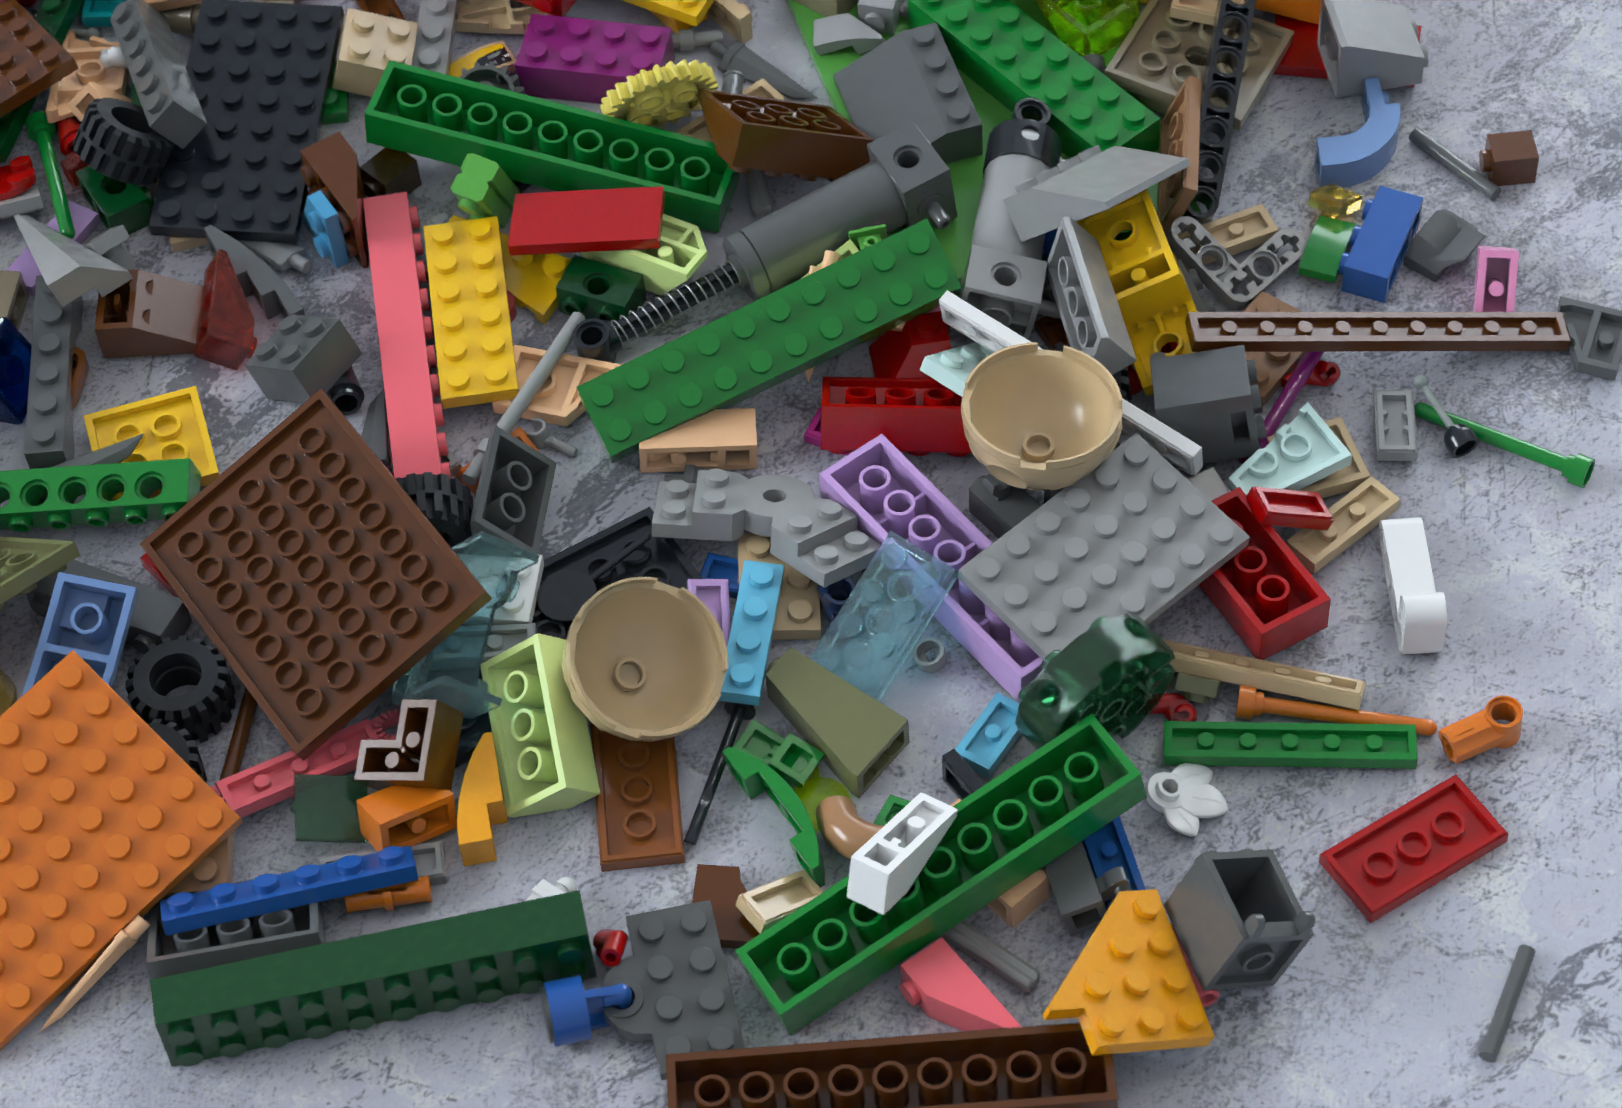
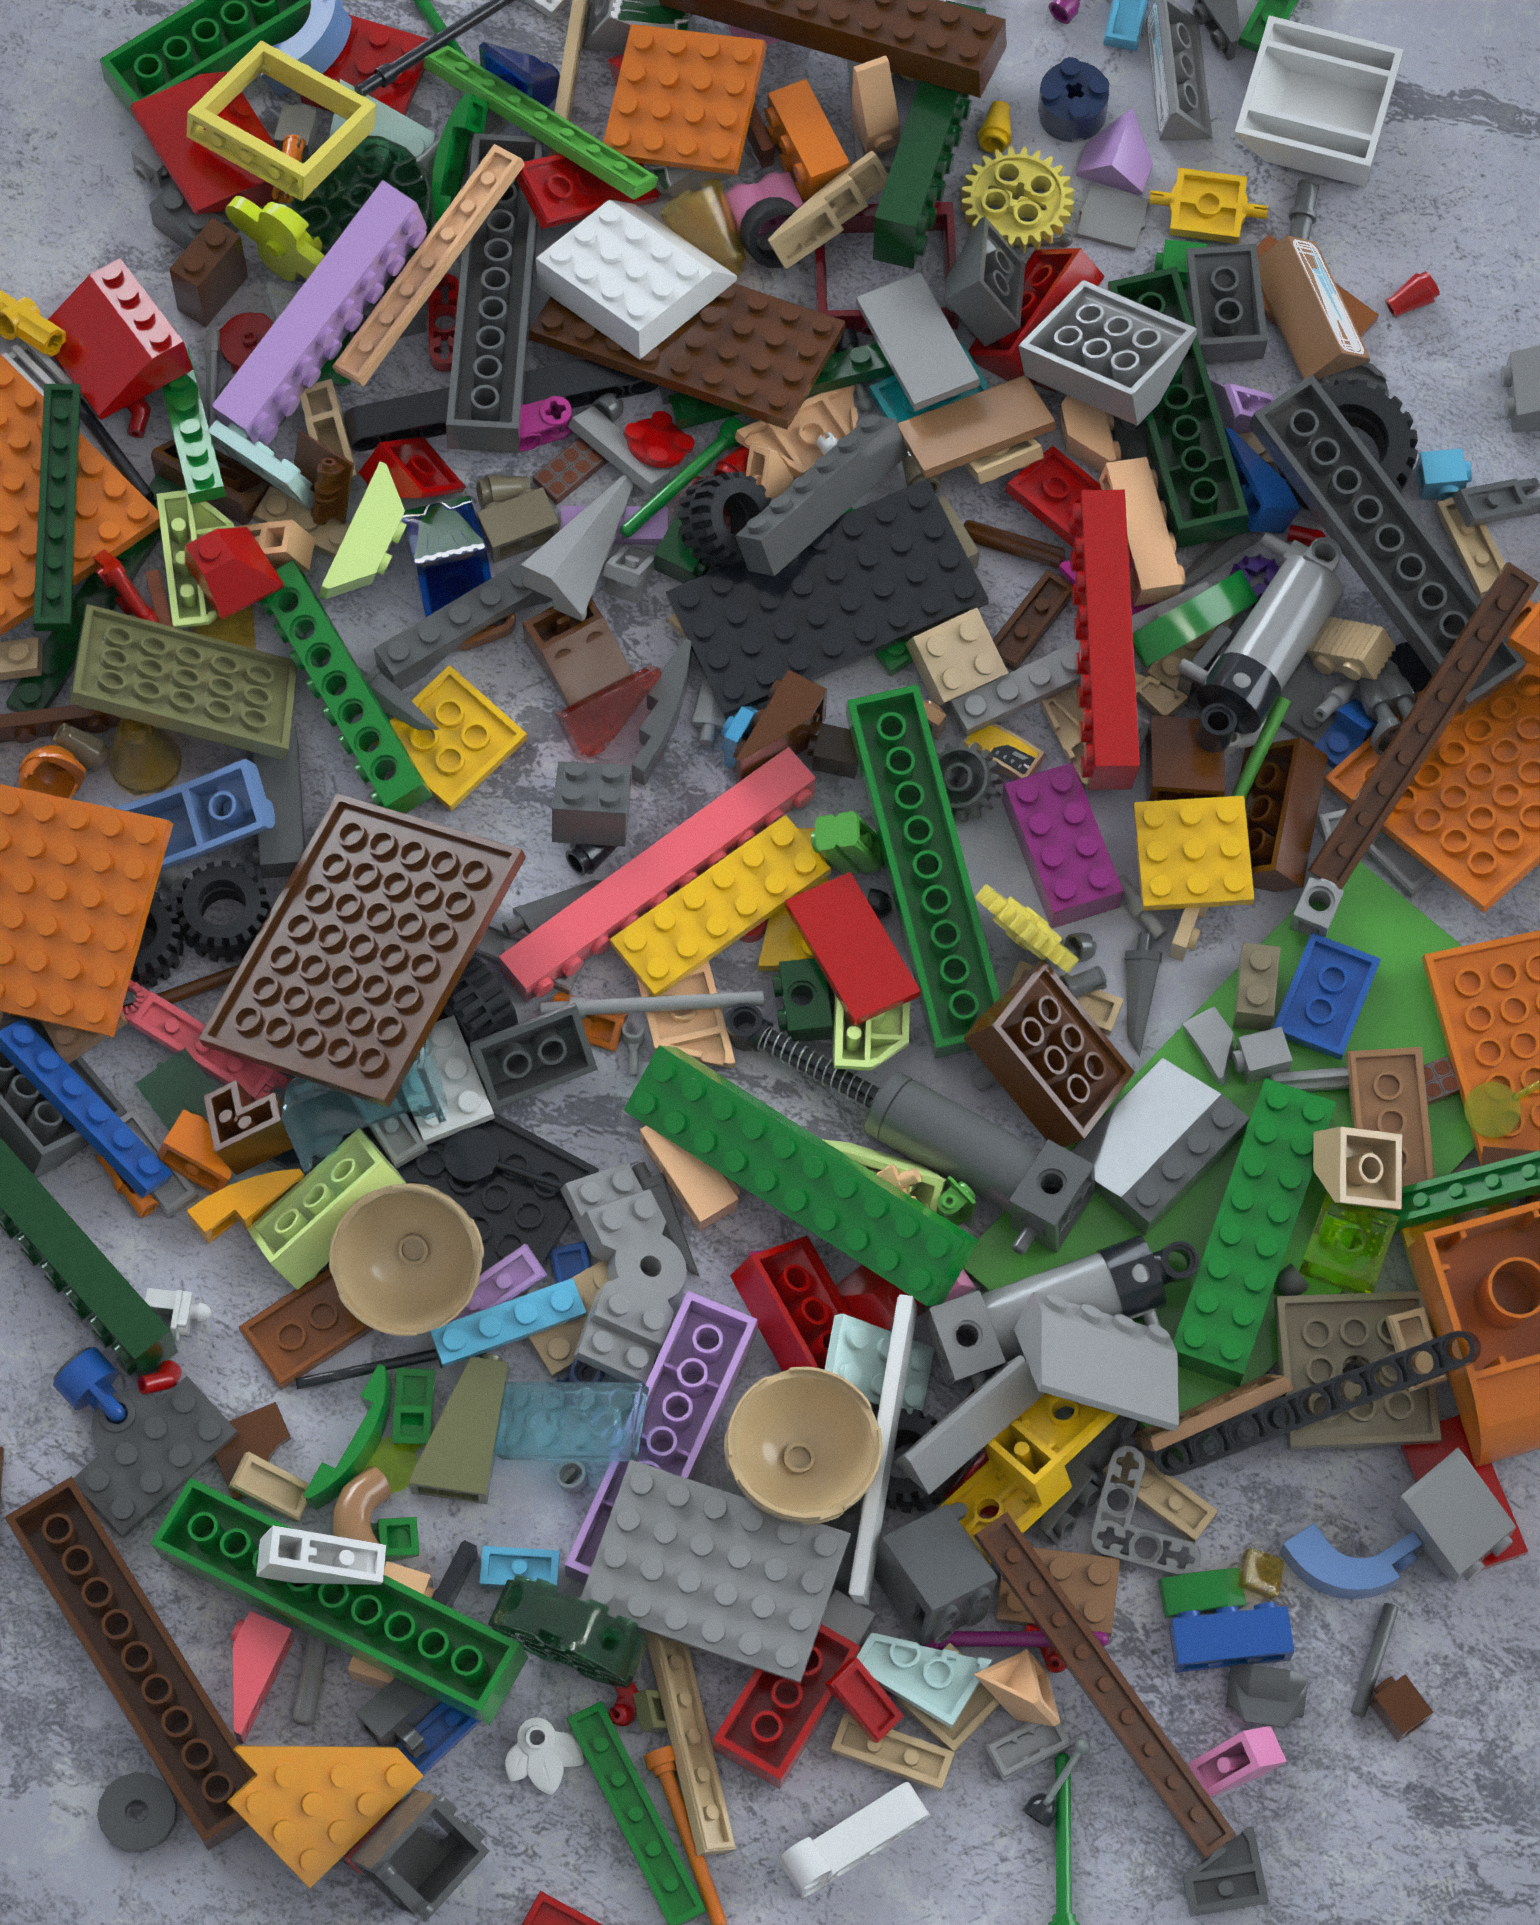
camera: 55 degrees right, 15 degrees up
(1351, 395) = (1022, 1688): none -> light nougat slope

